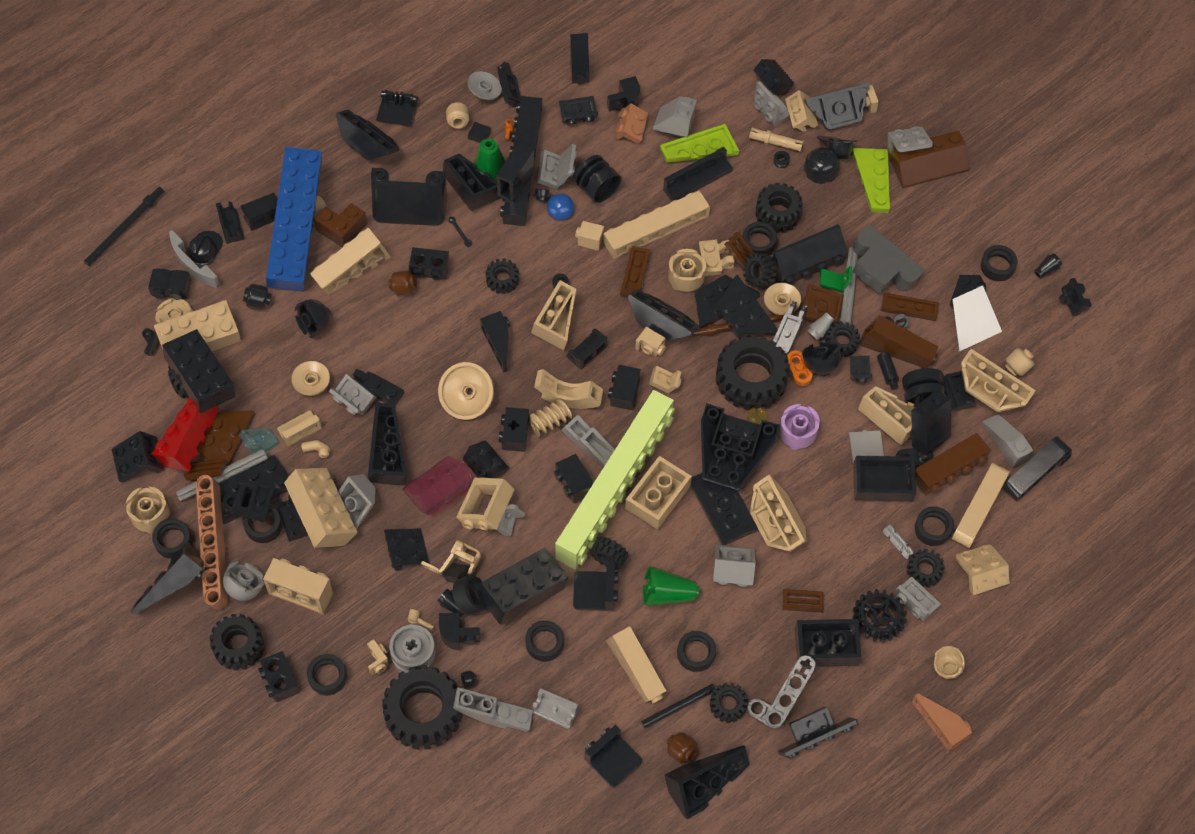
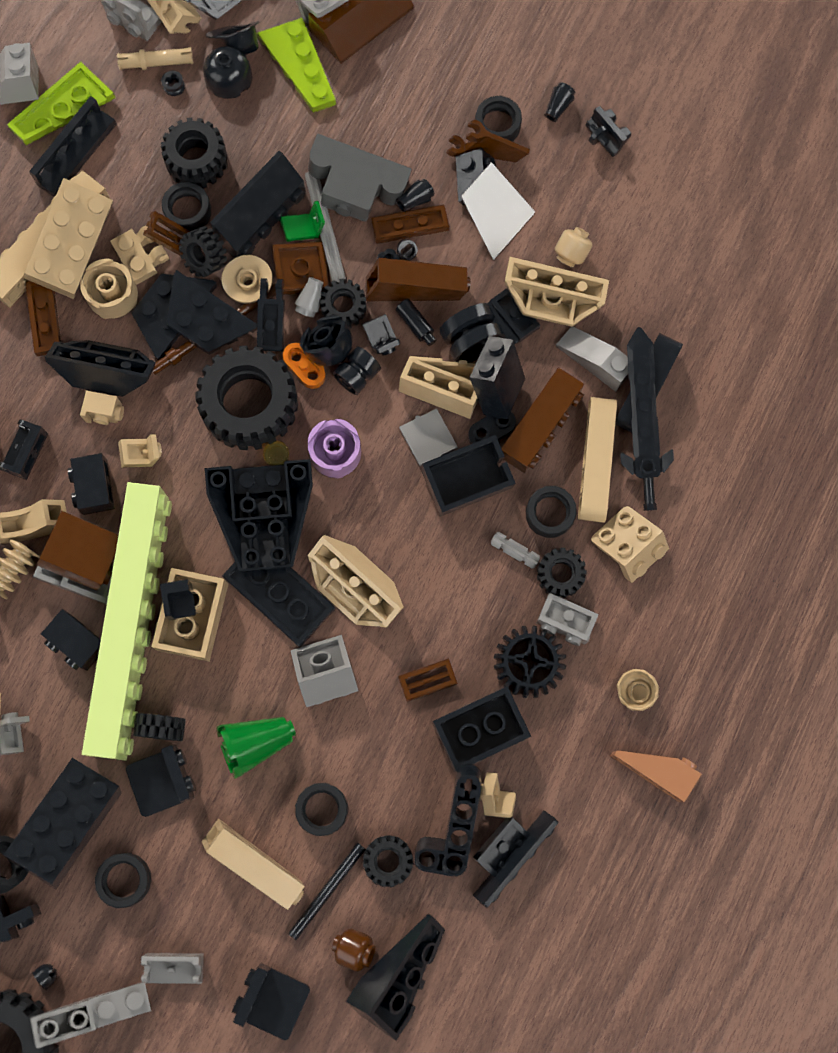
camera: 25 degrees left, 15 degrees up
(602, 422) = (79, 551): none -> reddish brown brick
(657, 474) = (178, 599): none -> black panel
(673, 228) = (68, 238): none -> tan brick
(817, 690) = (494, 801): none -> tan bracket
(837, 383) = (360, 367): none -> black wheel
(921, 289) = (417, 194): none -> black cone
(987, 273) = (493, 144): none -> reddish brown flag
(1024, 491) = (644, 417): none -> black sword

